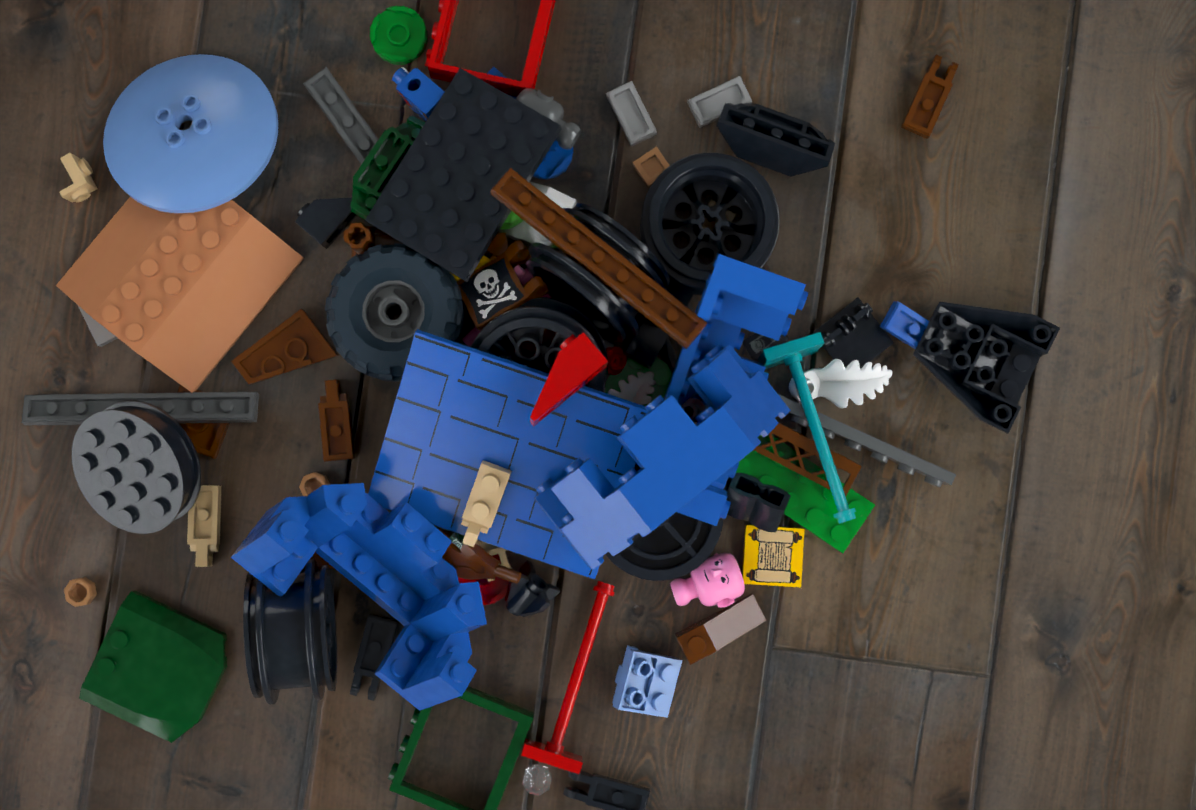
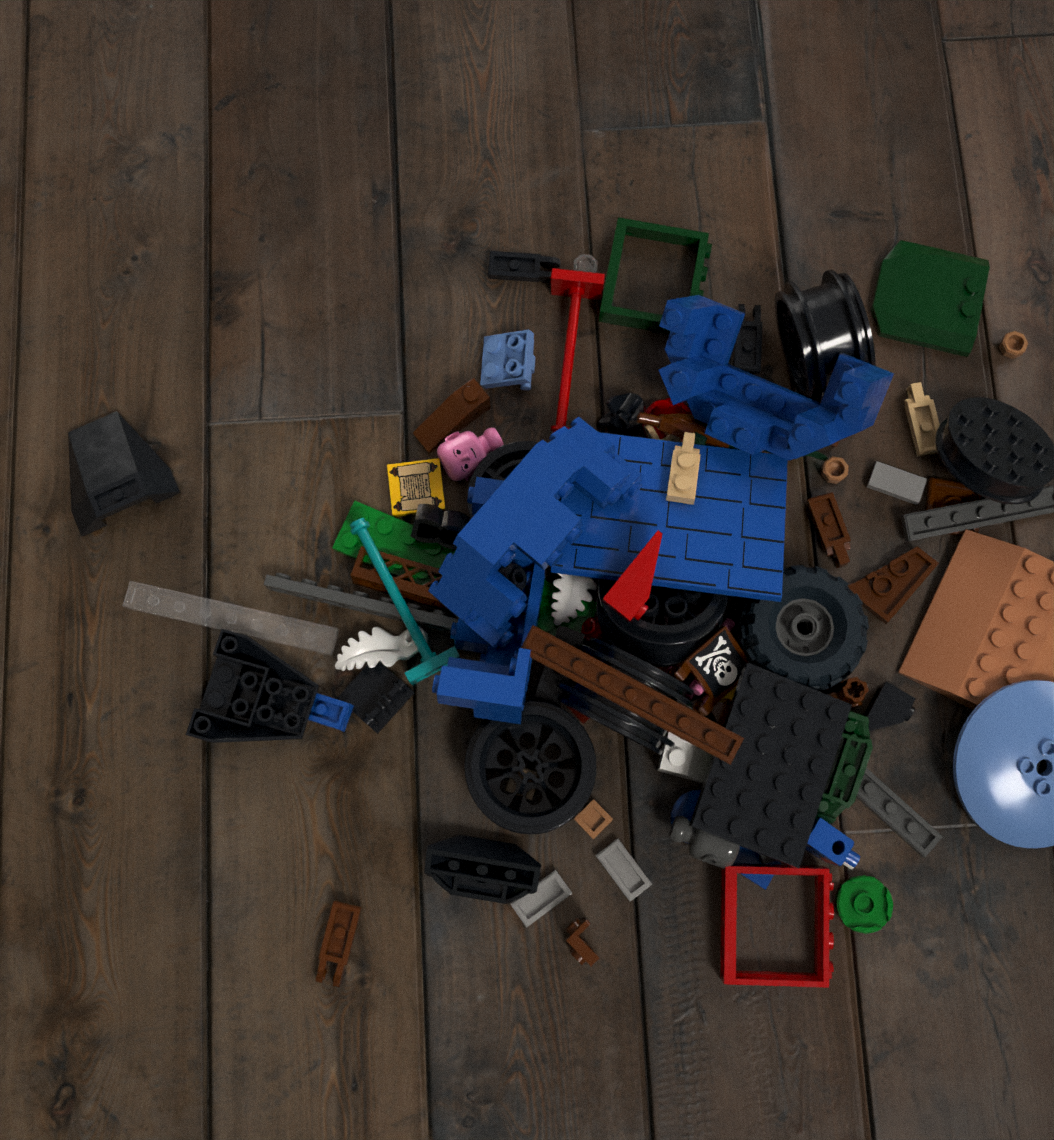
camera: 170 degrees right, 10 degrees down
(251, 460) = (896, 483): none -> light grey tile
(690, 40) = (580, 949): none -> reddish brown bracket
(994, 450) = (231, 617): none -> clear tile
(1101, 637) = (113, 472): none -> black wedge

